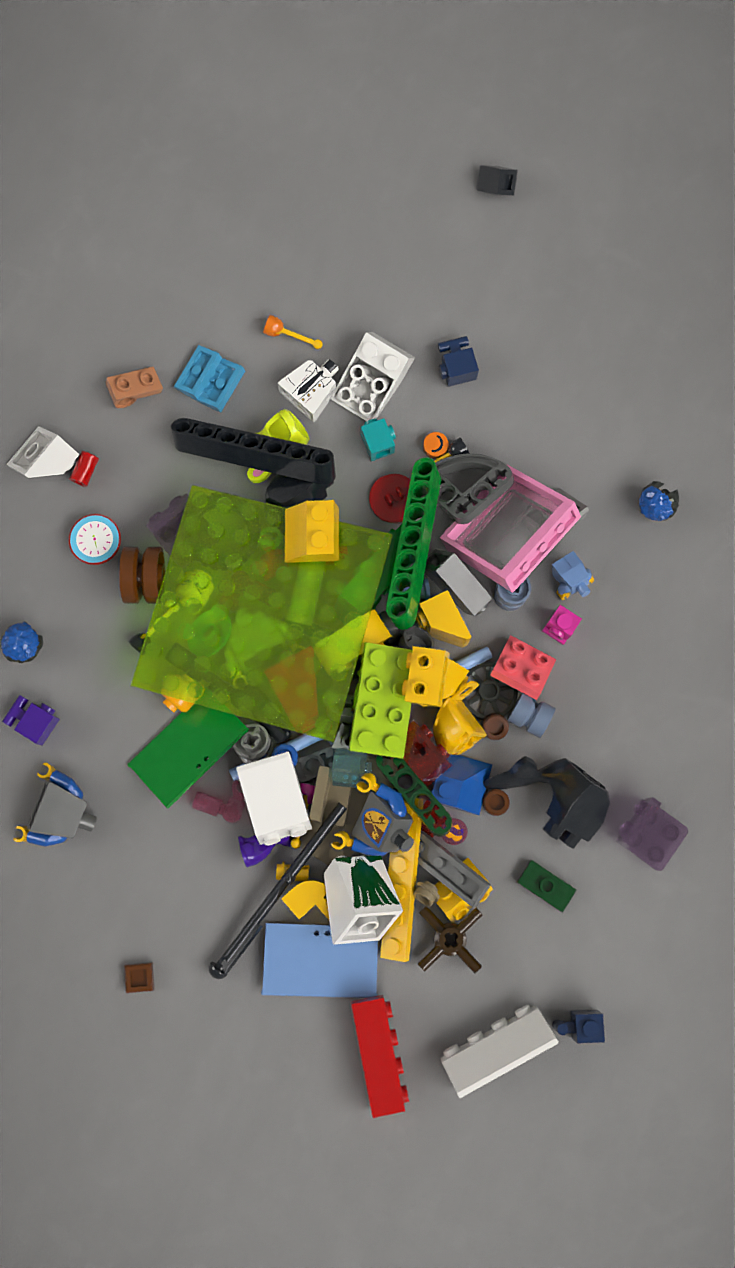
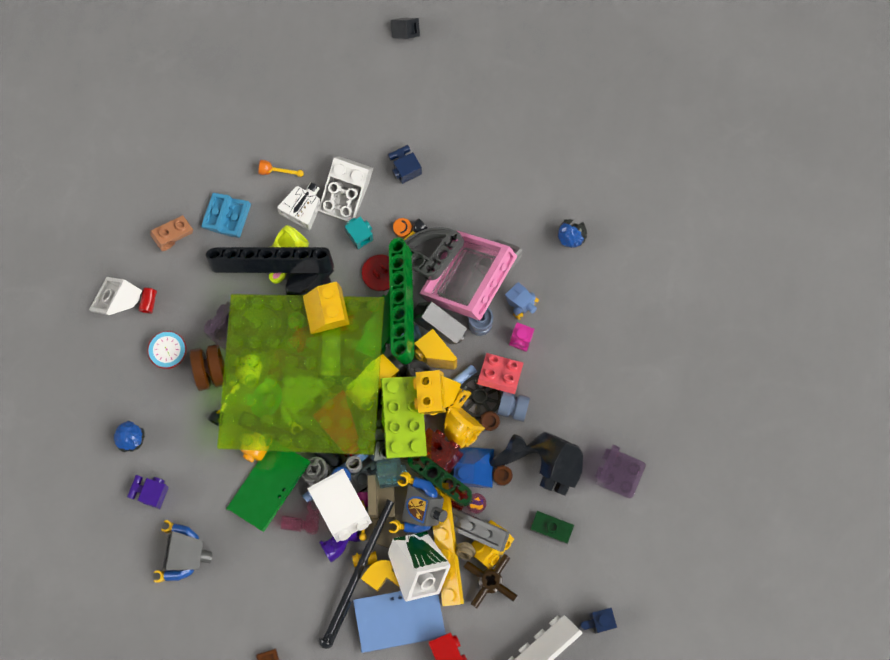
camera: 10 degrees left, 5 degrees down
(304, 741) = (352, 462): none -> light grey hinge

